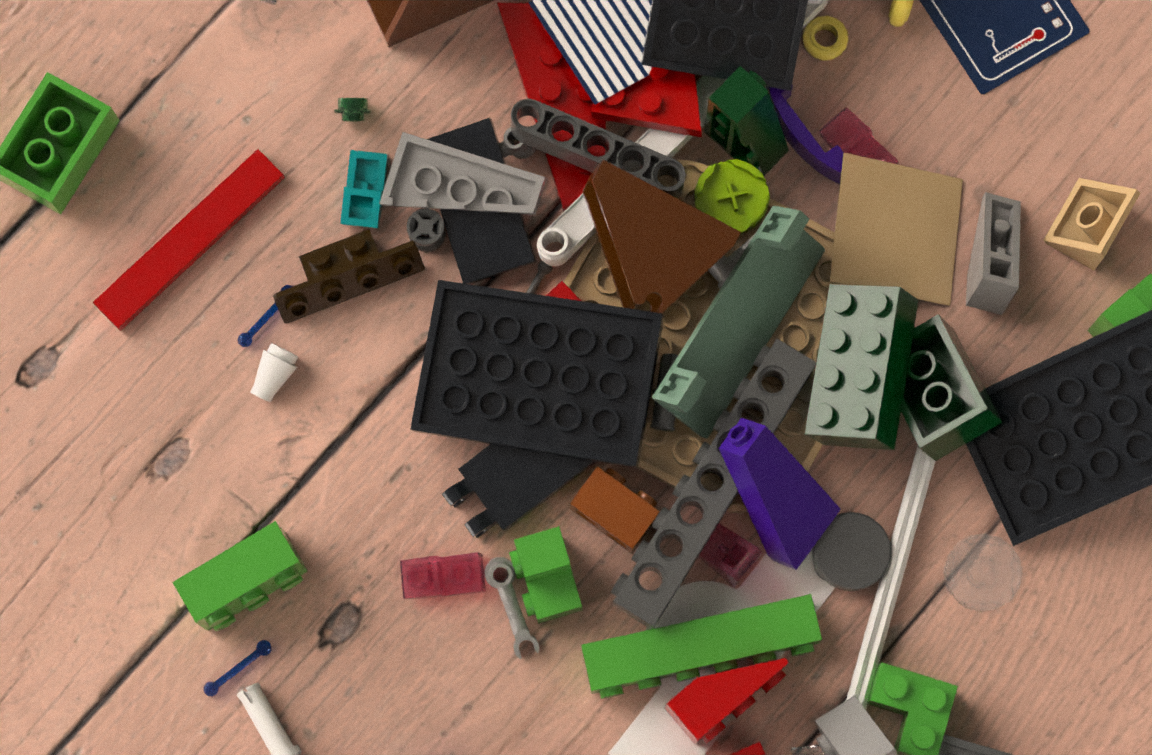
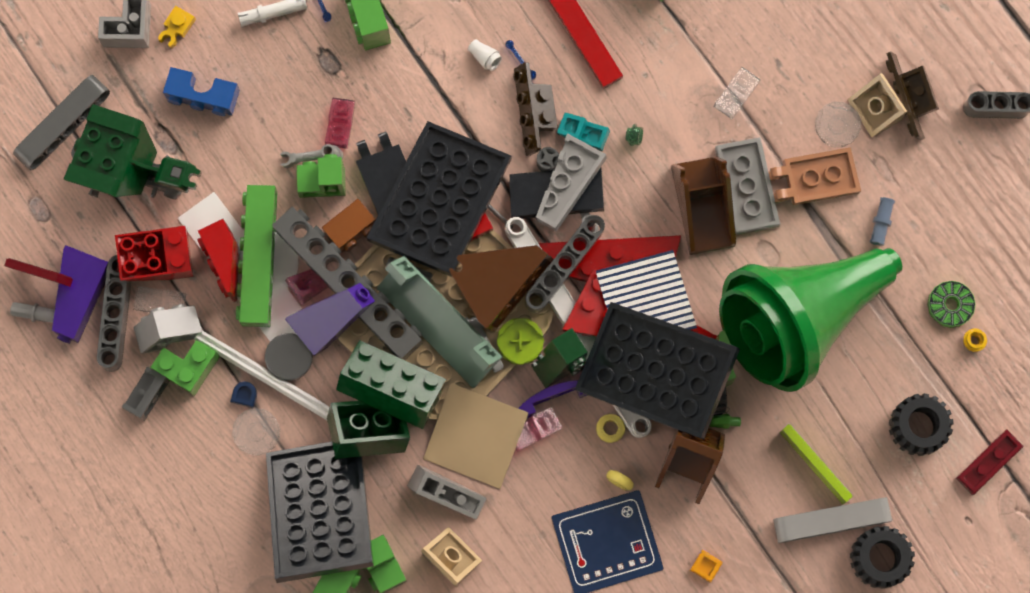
camera: 100 degrees right, 0 degrees up
(928, 608) = (244, 394): none -> dark blue tile

